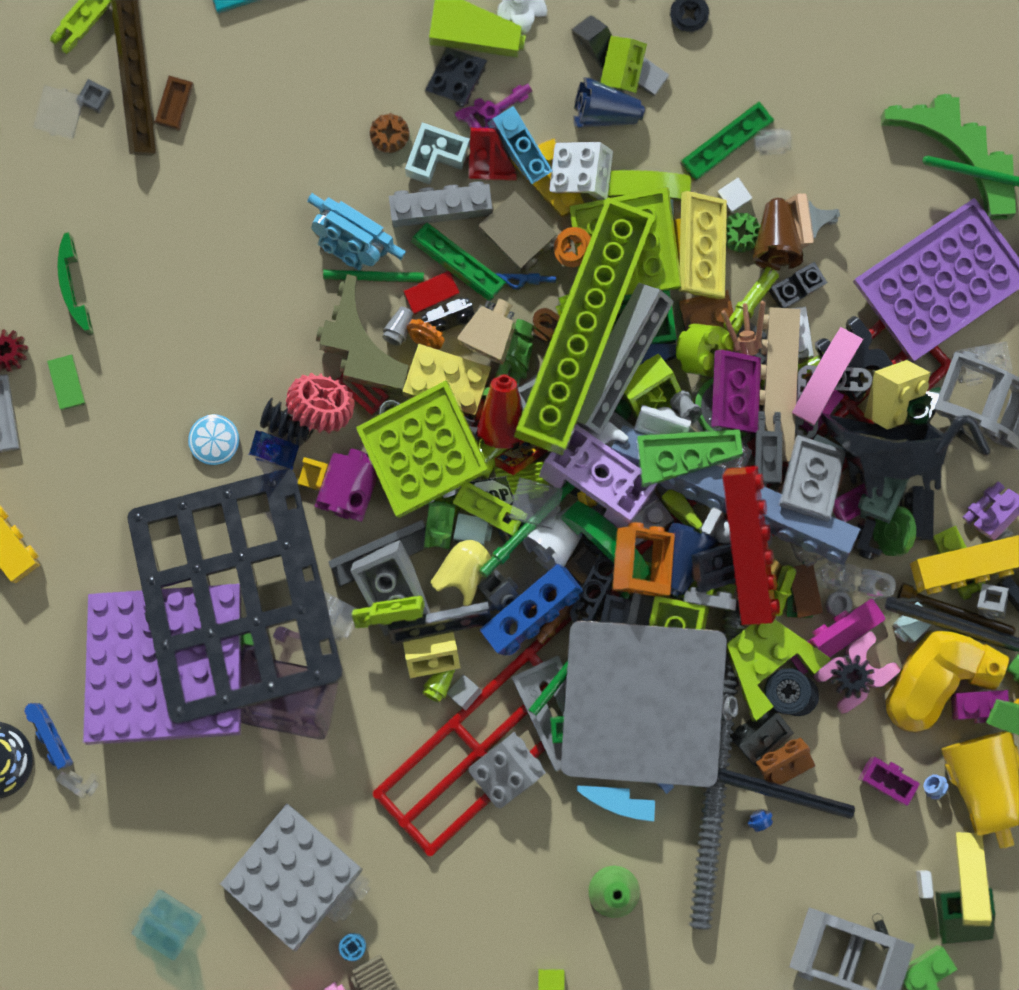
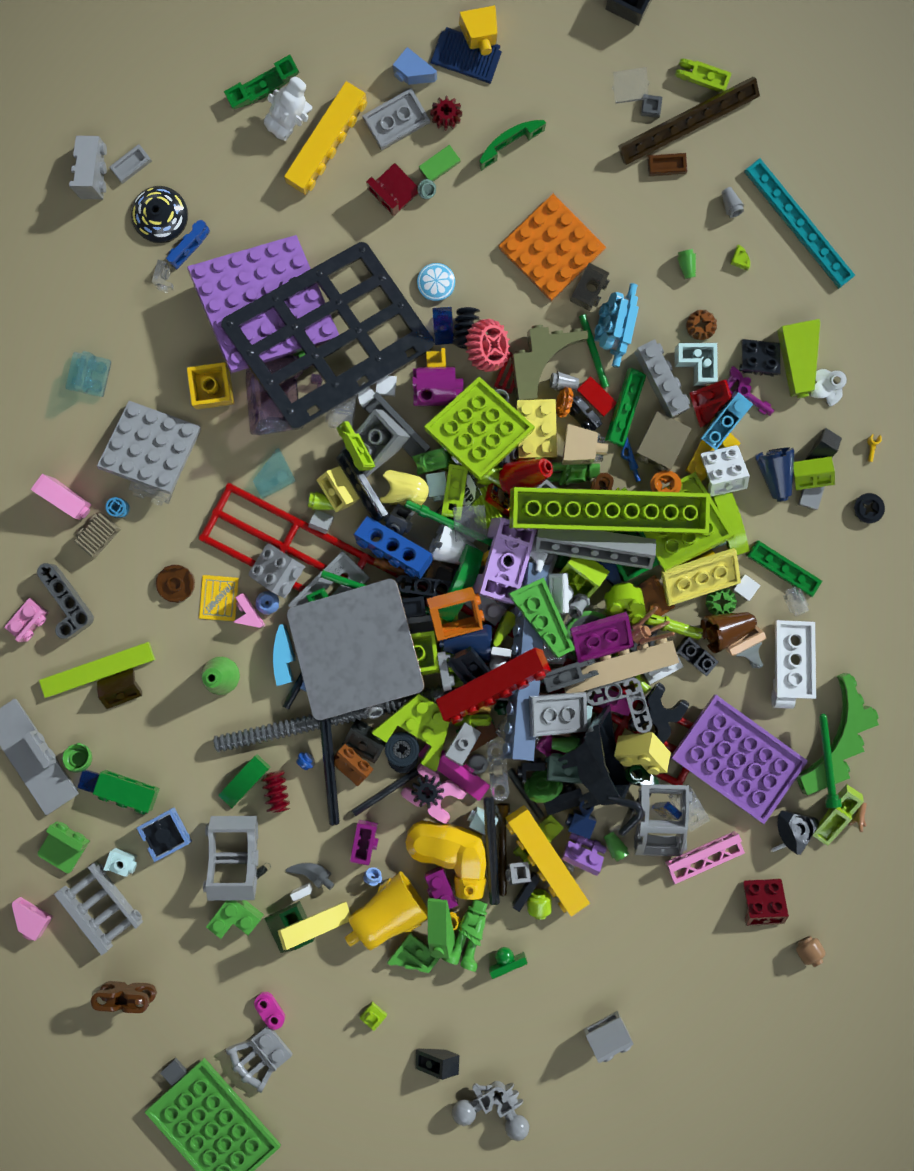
camera: 70 degrees right, 5 degrees up
(76, 450) = (393, 189): none -> dark red bracket
(92, 409) = (426, 189): none -> sand green plate
(224, 280) = (552, 247): none -> orange plate
(241, 770) = (210, 385): none -> yellow brick
(253, 42) = (732, 203): none -> light grey cone
(299, 265) = (596, 277): none -> clear smoke brick
(307, 122) = (687, 262): none -> bright green cone
(323, 548) = (387, 386): none -> white tile
(324, 56) = (740, 258): none -> lime tile
(327, 578) = (365, 396): none -> white tile
(383, 731) = (274, 475): none -> clear light blue wing
(475, 907) = (175, 583): none -> reddish brown tile
(514, 858) = (218, 598): none -> yellow sticker
(533, 797) = (267, 608): none -> medium blue plate
(556, 825) = (251, 617): none -> bright pink slope
(666, 802) = (294, 692): none -> black bar
(759, 907) = (244, 781): none -> green slope
(779, 547) = (500, 707): none -> dark green plate
(786, 871) = (276, 792): none -> dark red piece
(808, 611) = (462, 744): none -> light grey plate
(827, 376) = (637, 699): bright pink slope -> none
(834, 733) = (385, 792): none -> black bar
(852, 485) = (565, 744): none -> bright green cone
(868, 180) = (794, 680): none -> white hinge
(890, 560) = (520, 786): none -> pearl dark grey bar
(906, 859) = (314, 872): none -> dark grey bar
(955, 500) = (581, 821): none -> dark blue brick
(977, 389) = (667, 811): none -> clear blue tile
(1000, 469) = (616, 847): none -> bright green cone

